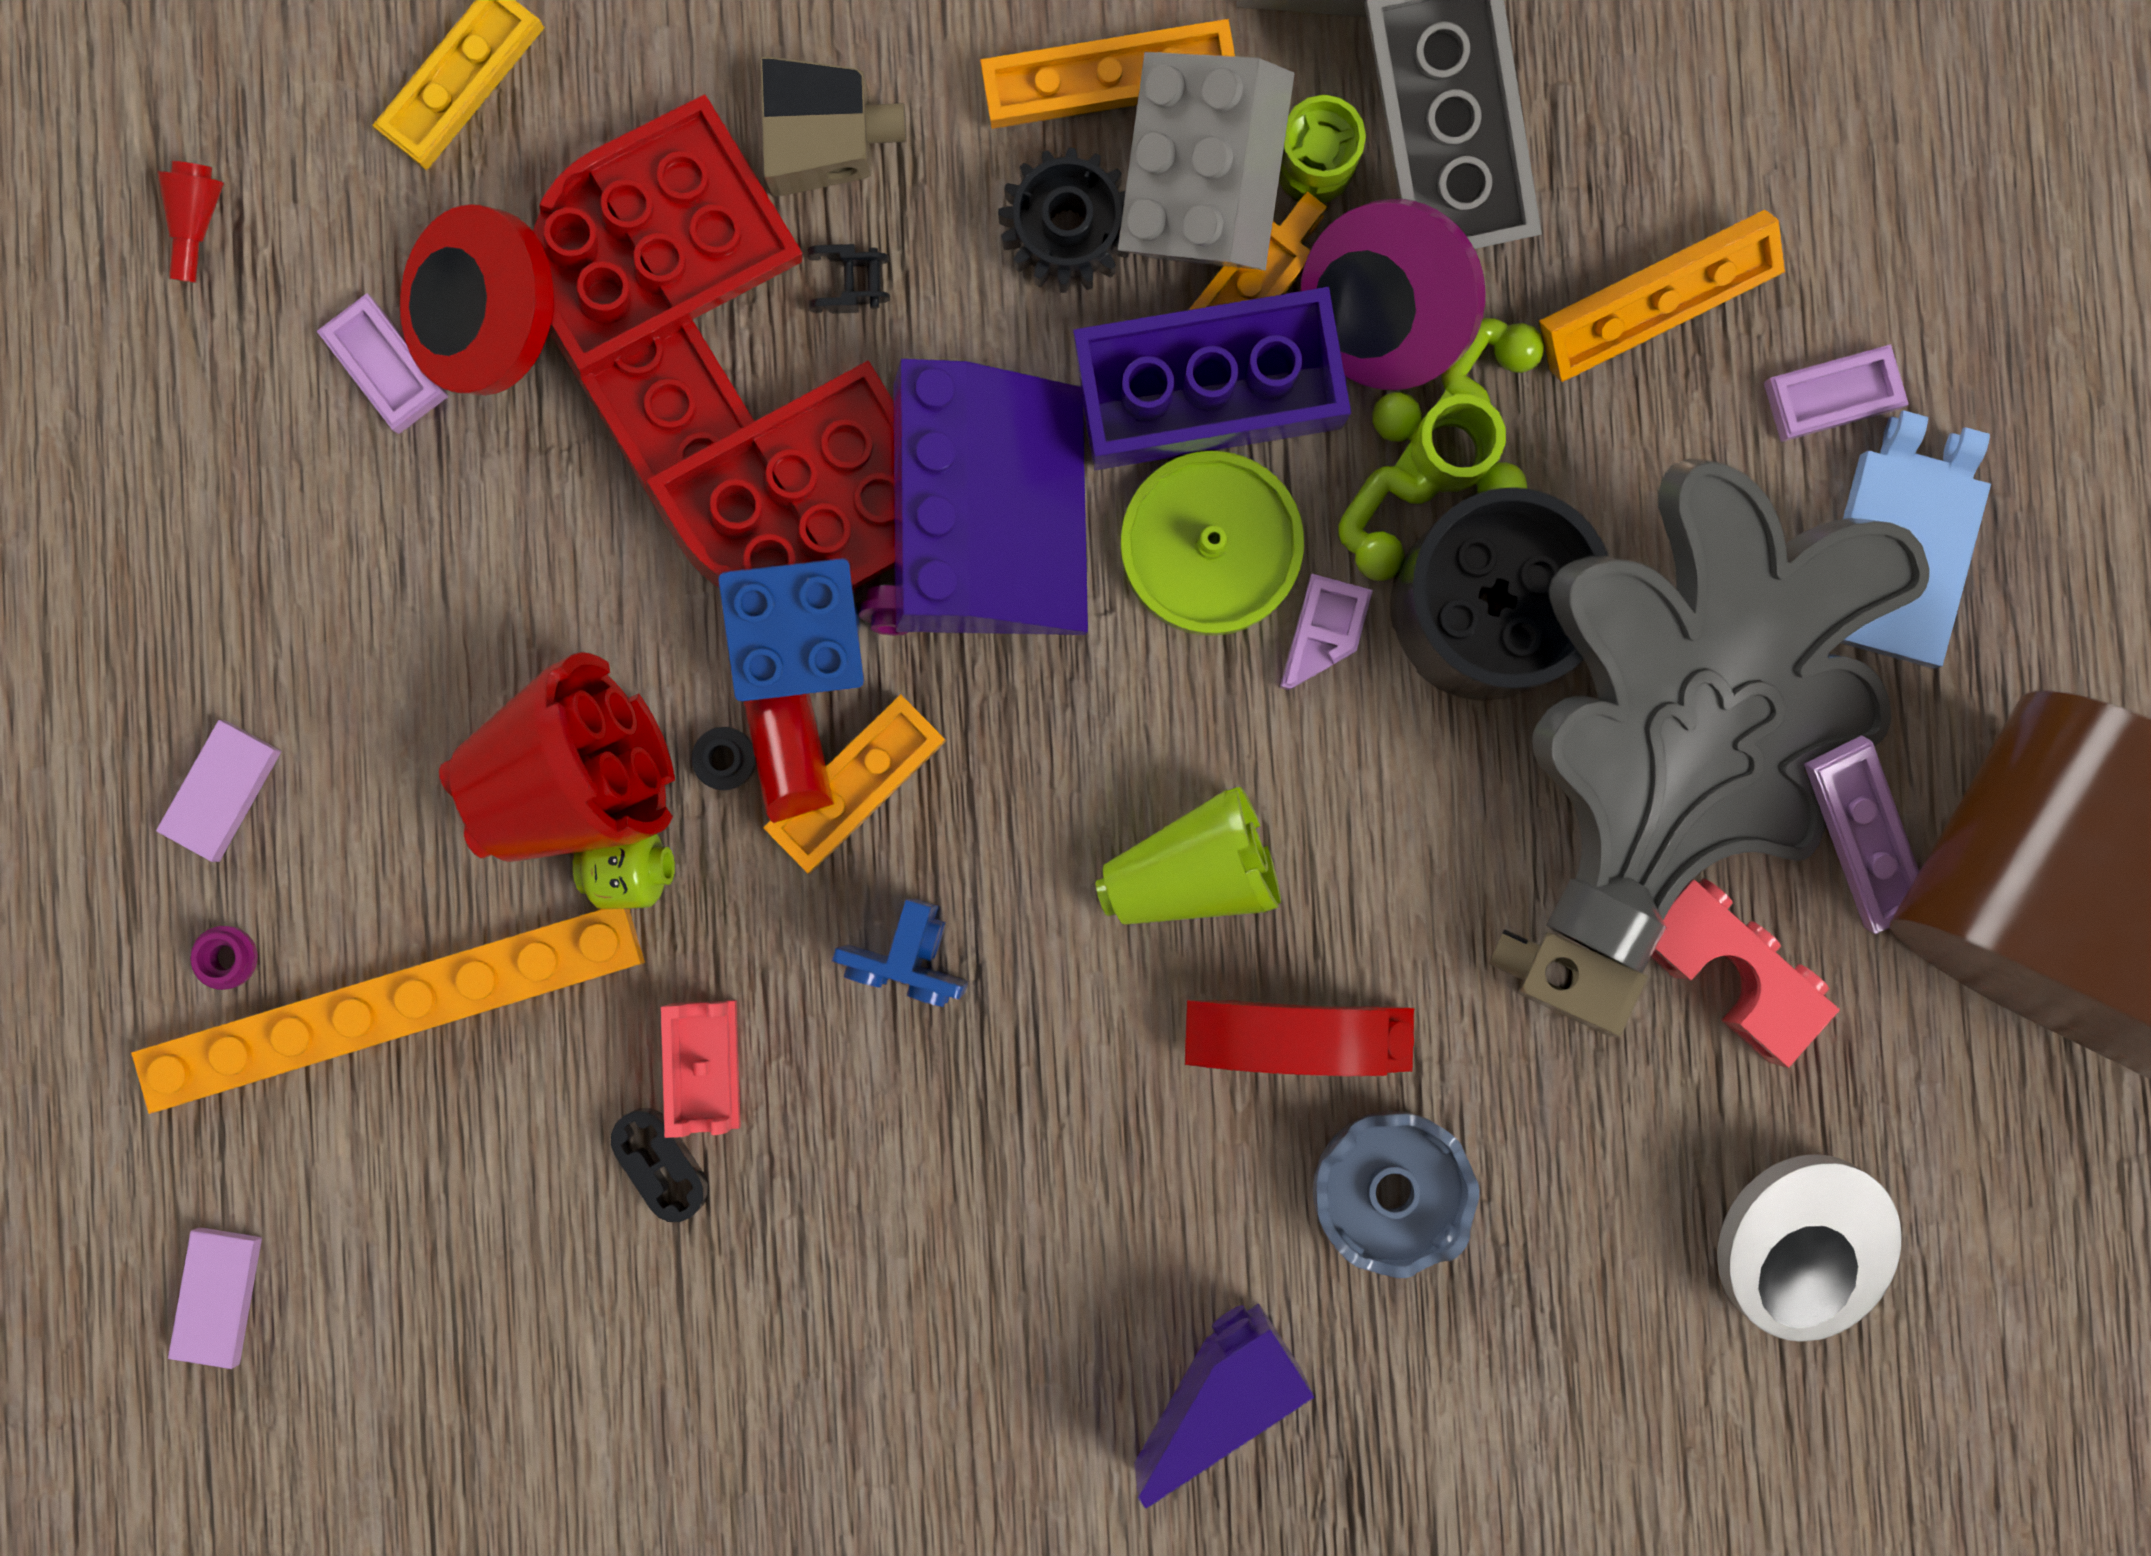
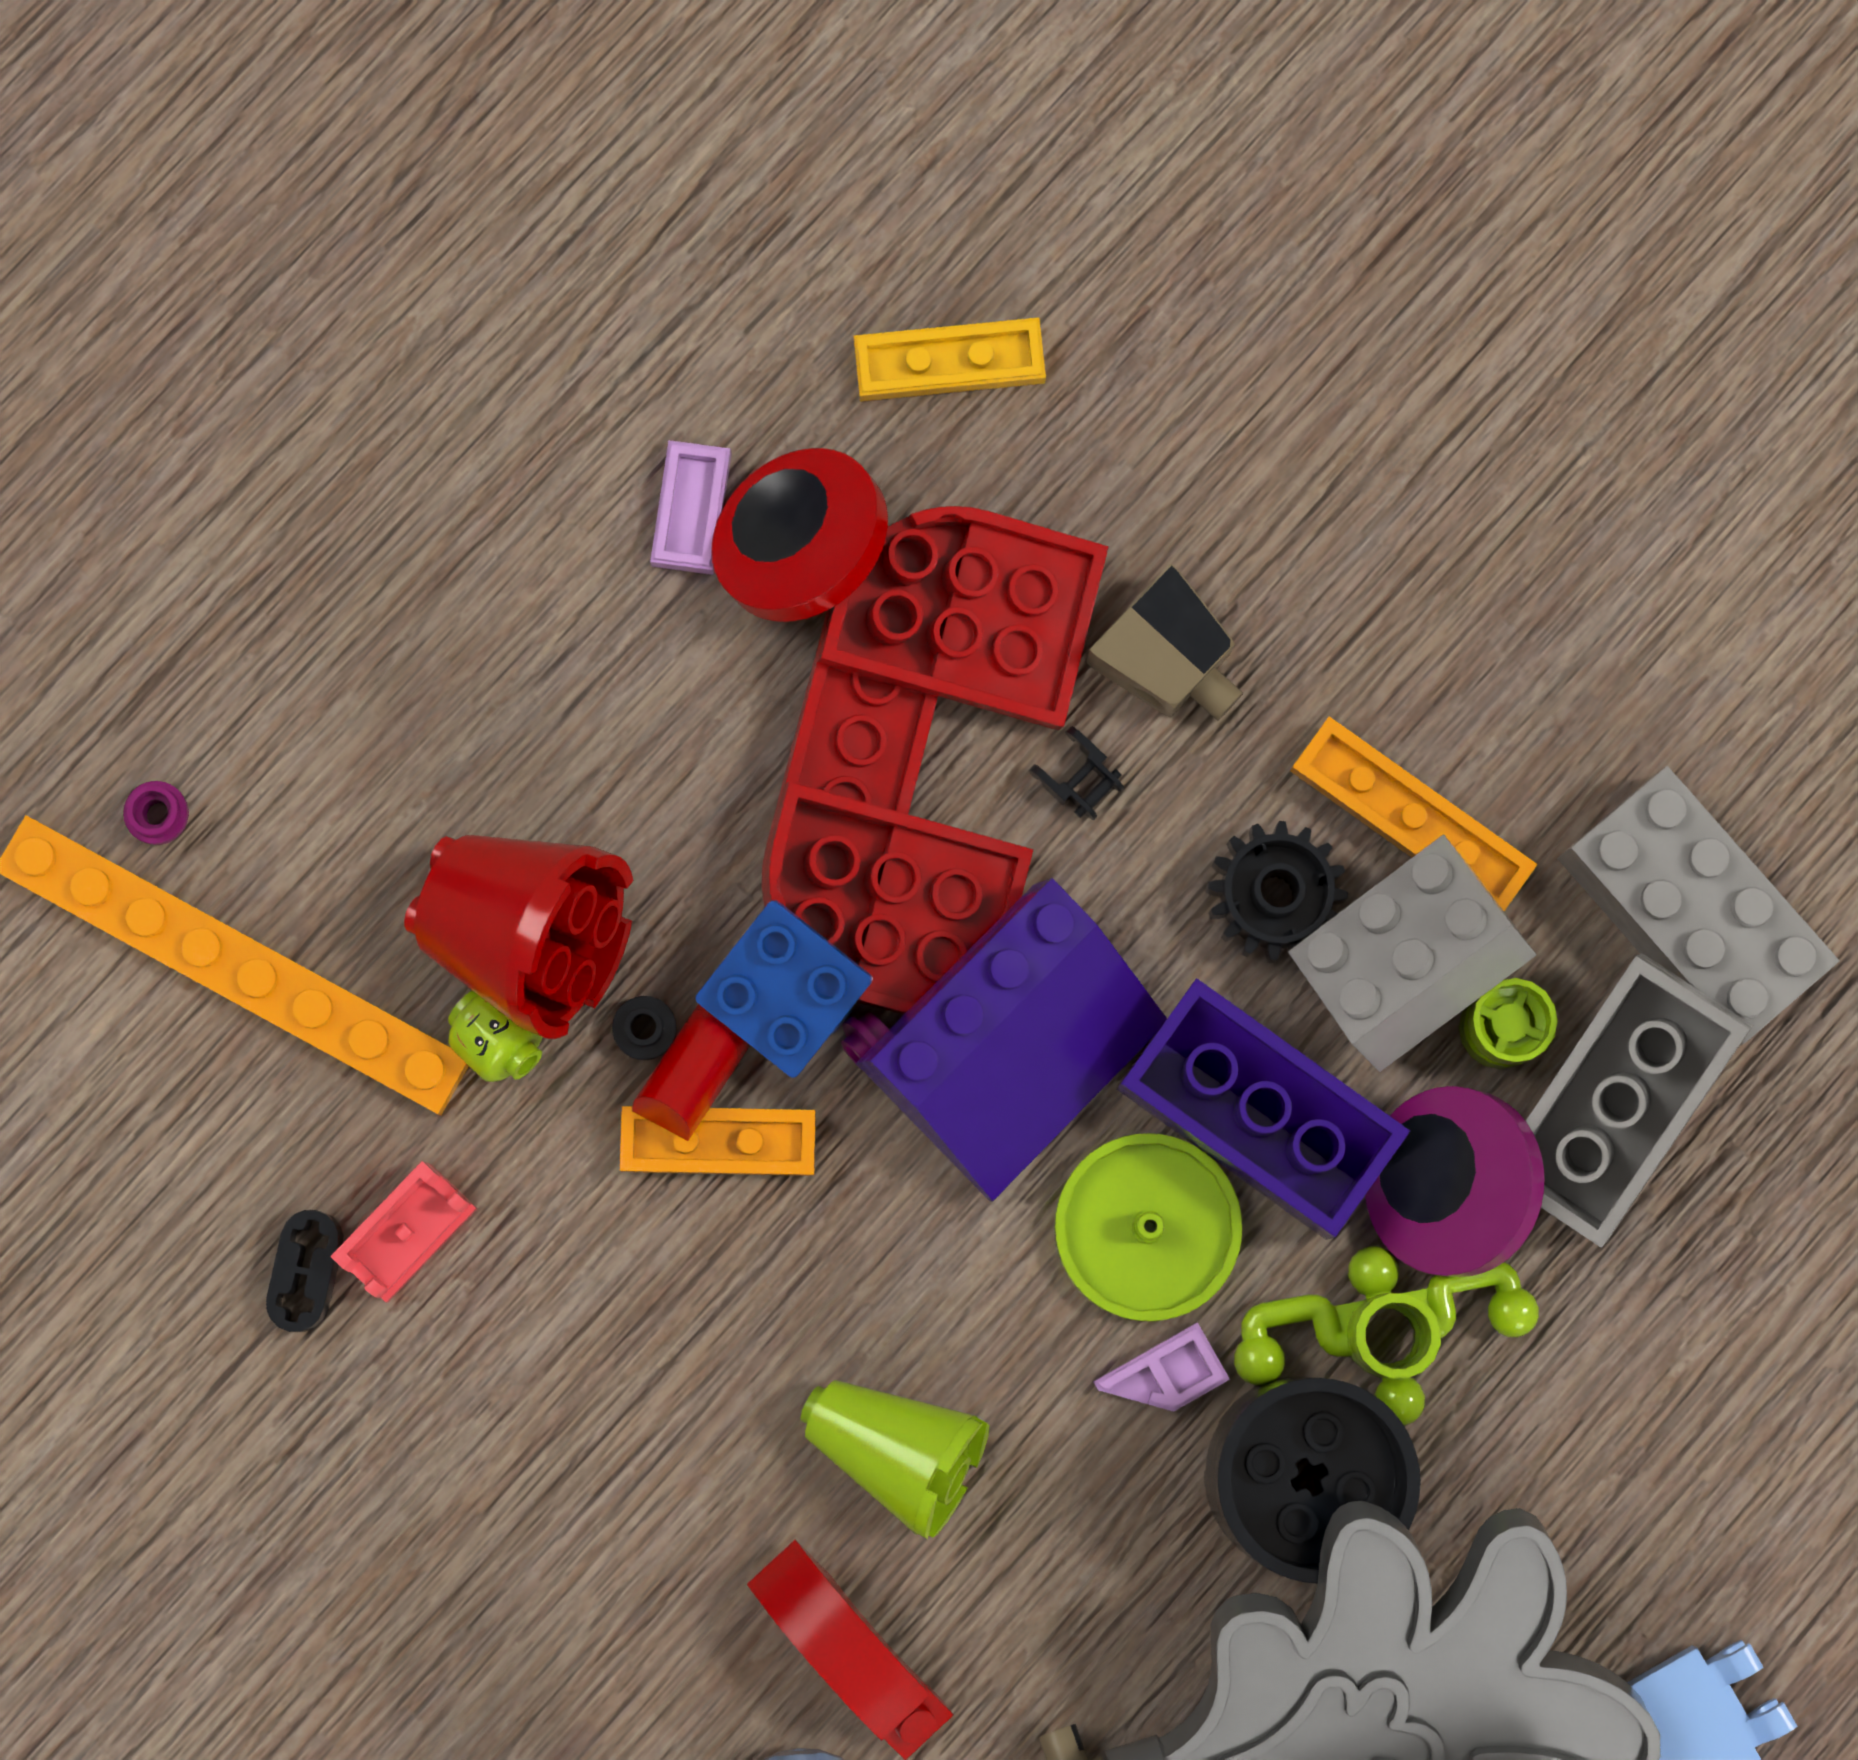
camera: 45 degrees right, 5 degrees down
(188, 205) = (670, 265): red cone -> none
(218, 791) = (272, 692): lavender tile -> none
(915, 939) = (645, 1297): blue bracket -> none
(1284, 260) = (1397, 1081): light orange plate -> none
(1663, 295) = (1657, 1380): light orange plate -> none
(1835, 393) = (1717, 1581): lavender tile -> none

